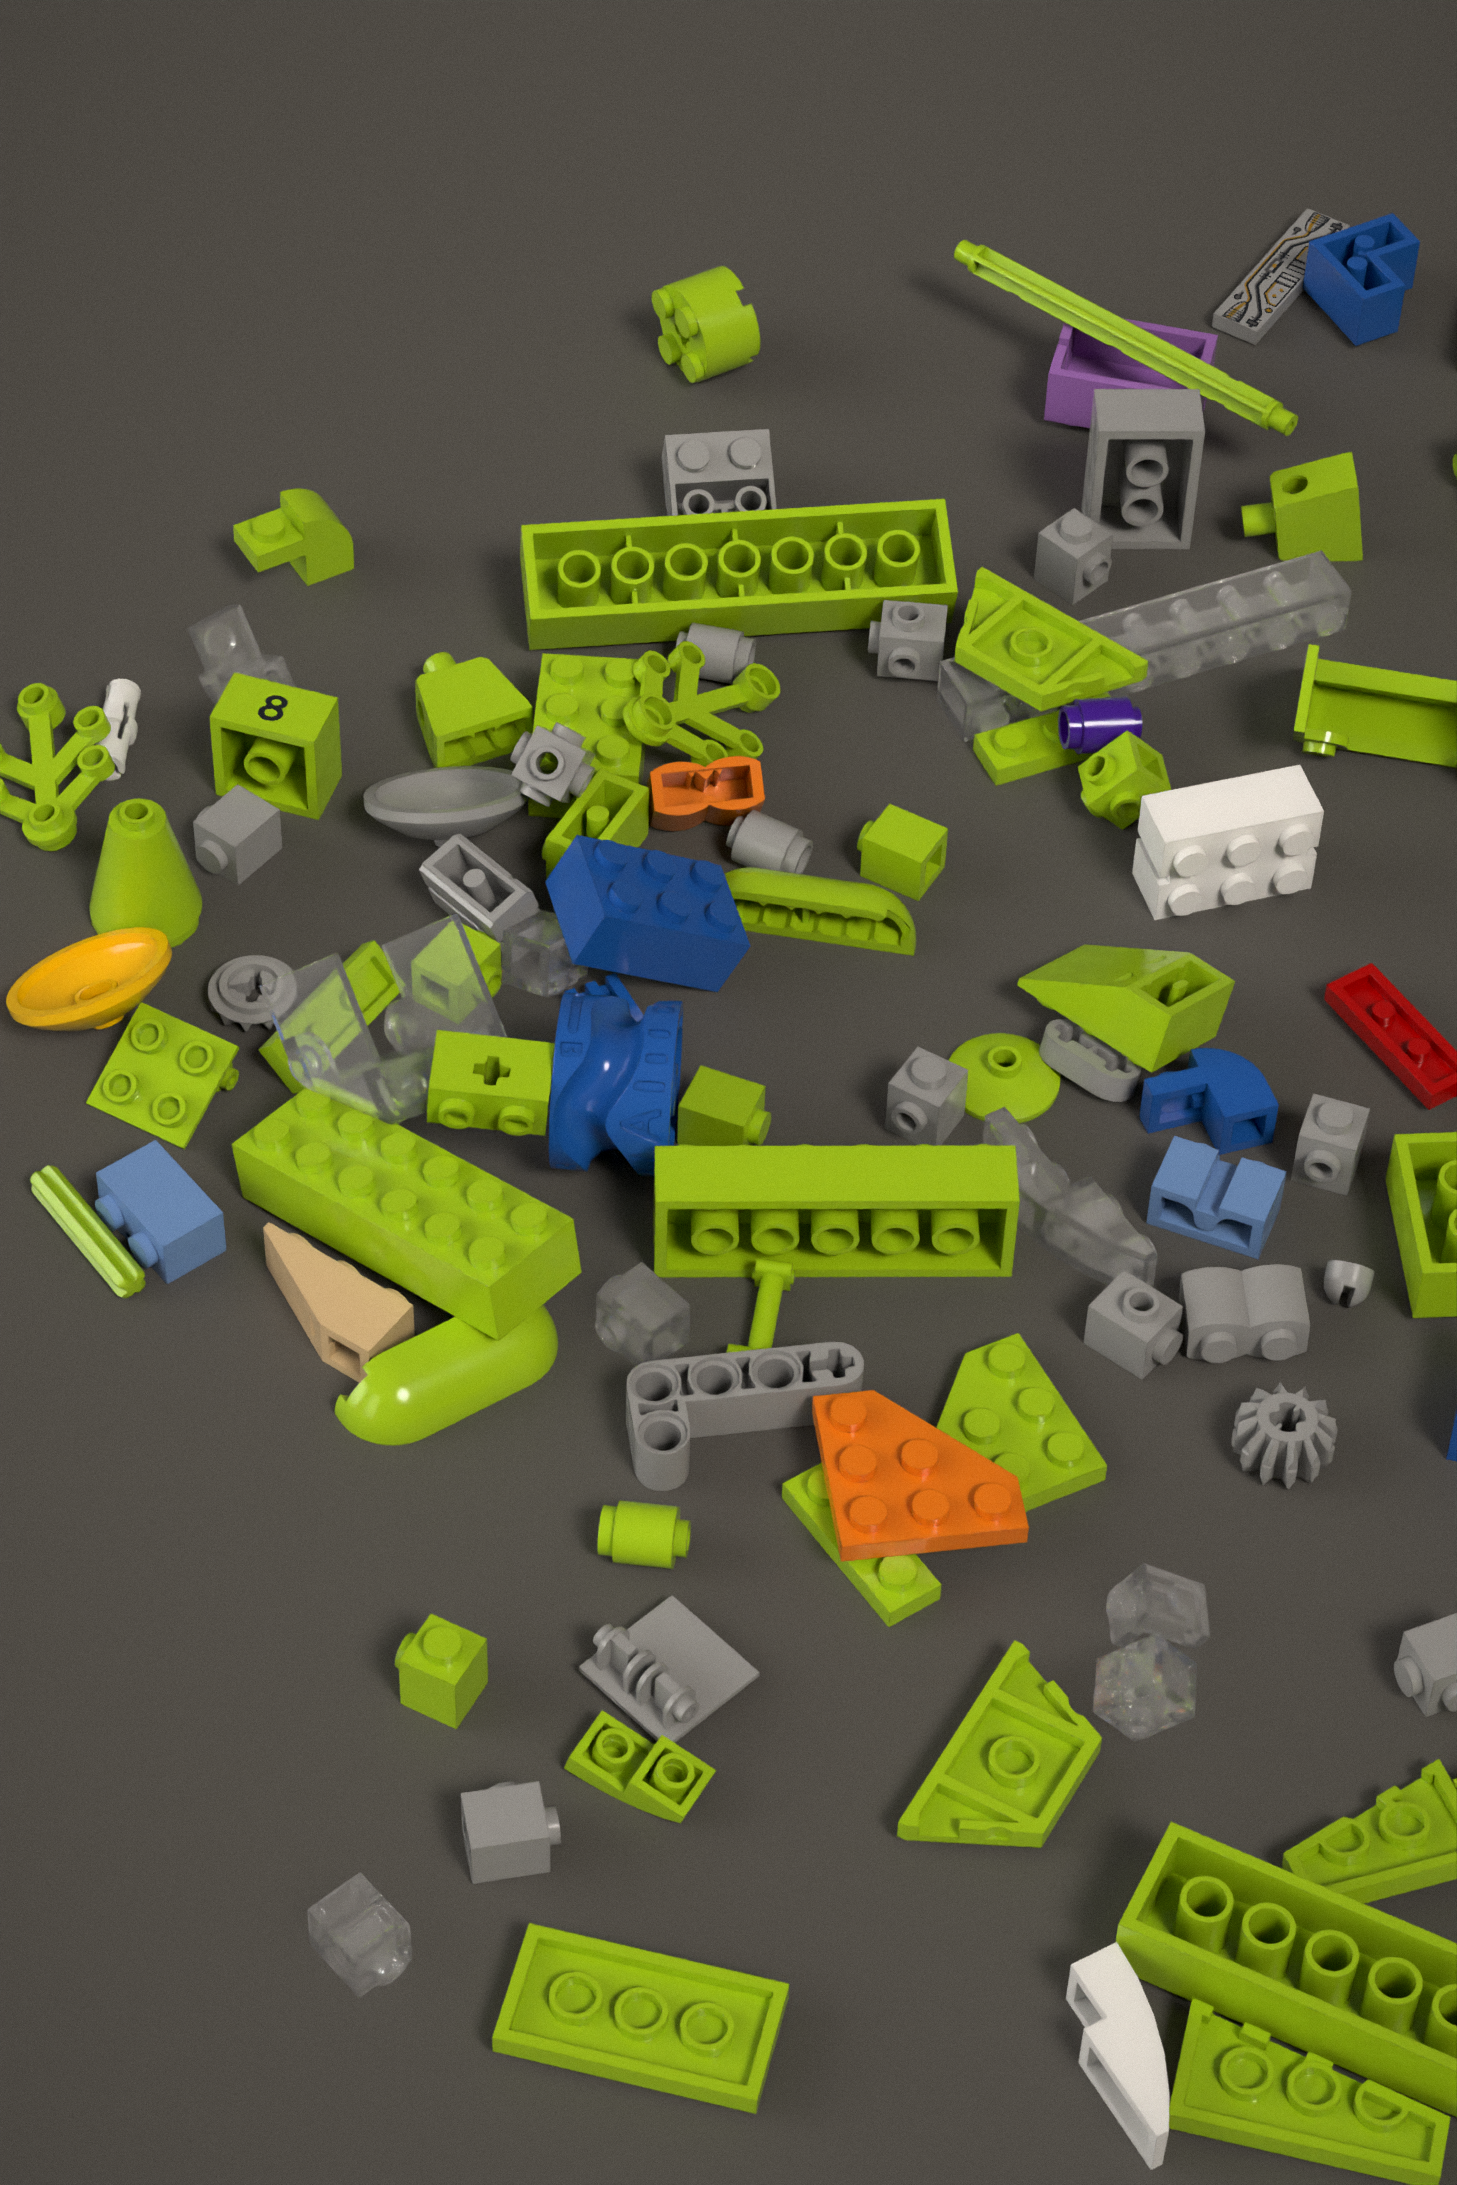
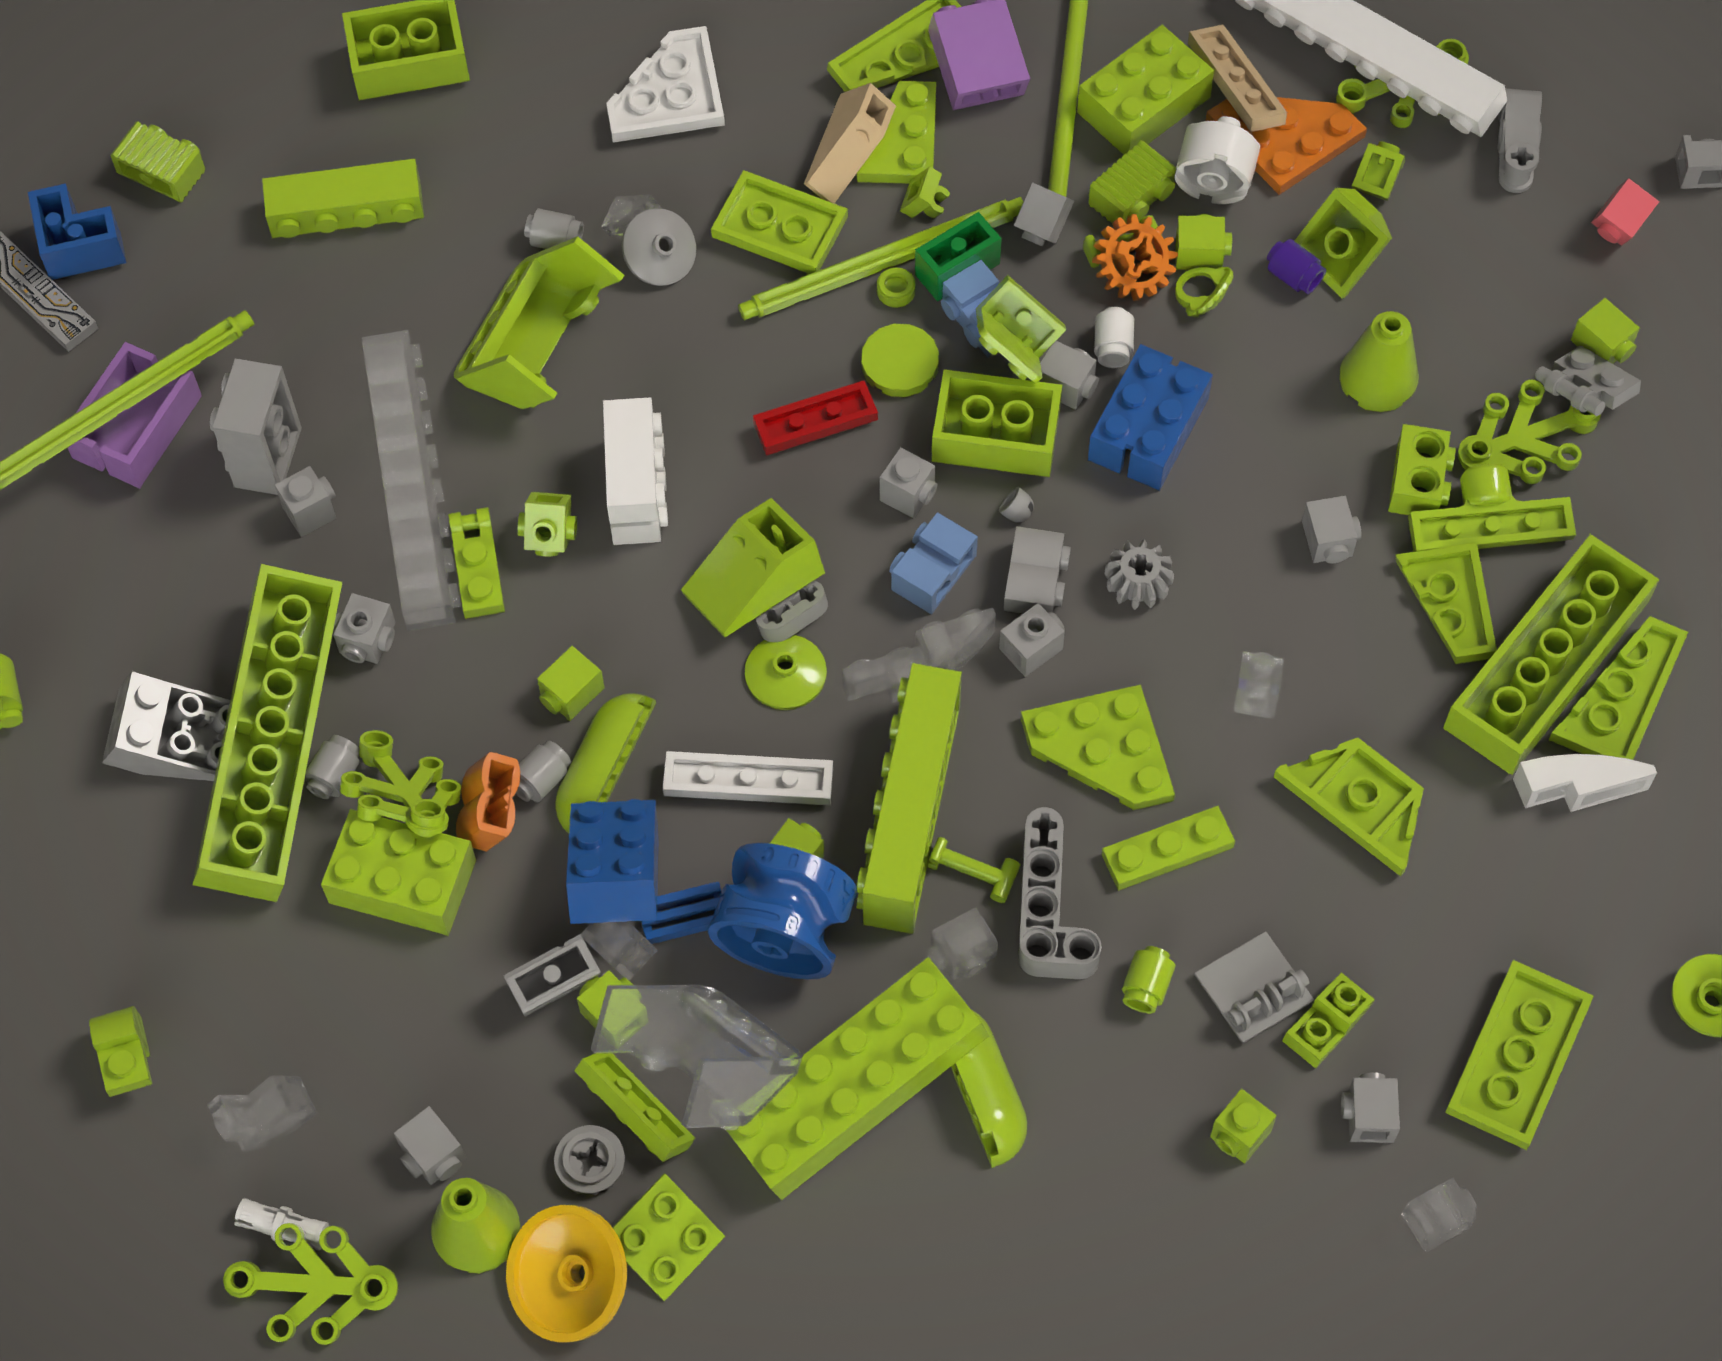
camera: 75 degrees left, 15 degrees up
(87, 1231) = (796, 1314): lime axle -> none
(160, 1212) = (798, 1256): medium blue brick -> none
(277, 744) = (359, 1096): lime brick -> none
(336, 1306) = (919, 1145): tan slope -> none
(445, 801) = (443, 982): light grey dish -> none
(469, 711) = (342, 956): lime torso -> none
(490, 1083) = (785, 1014): lime brick -> none
(573, 764) = (462, 893): light grey brick -> none
(606, 811) = (510, 884): lime brick -> none
(824, 1054) = (748, 778): none -> white plate
(907, 1485) = (1144, 805): orange plate -> none
(926, 1098) = (811, 720): light grey brick -> none
(1038, 649) = (417, 544): lime wing -> none
(1096, 722) = (497, 523): dark purple brick -> none
(1145, 1687) = (1329, 703): clear brick -> none
(1219, 1091) = (847, 535): blue brick -> none
(1311, 510) = (313, 333): lime torso -> none

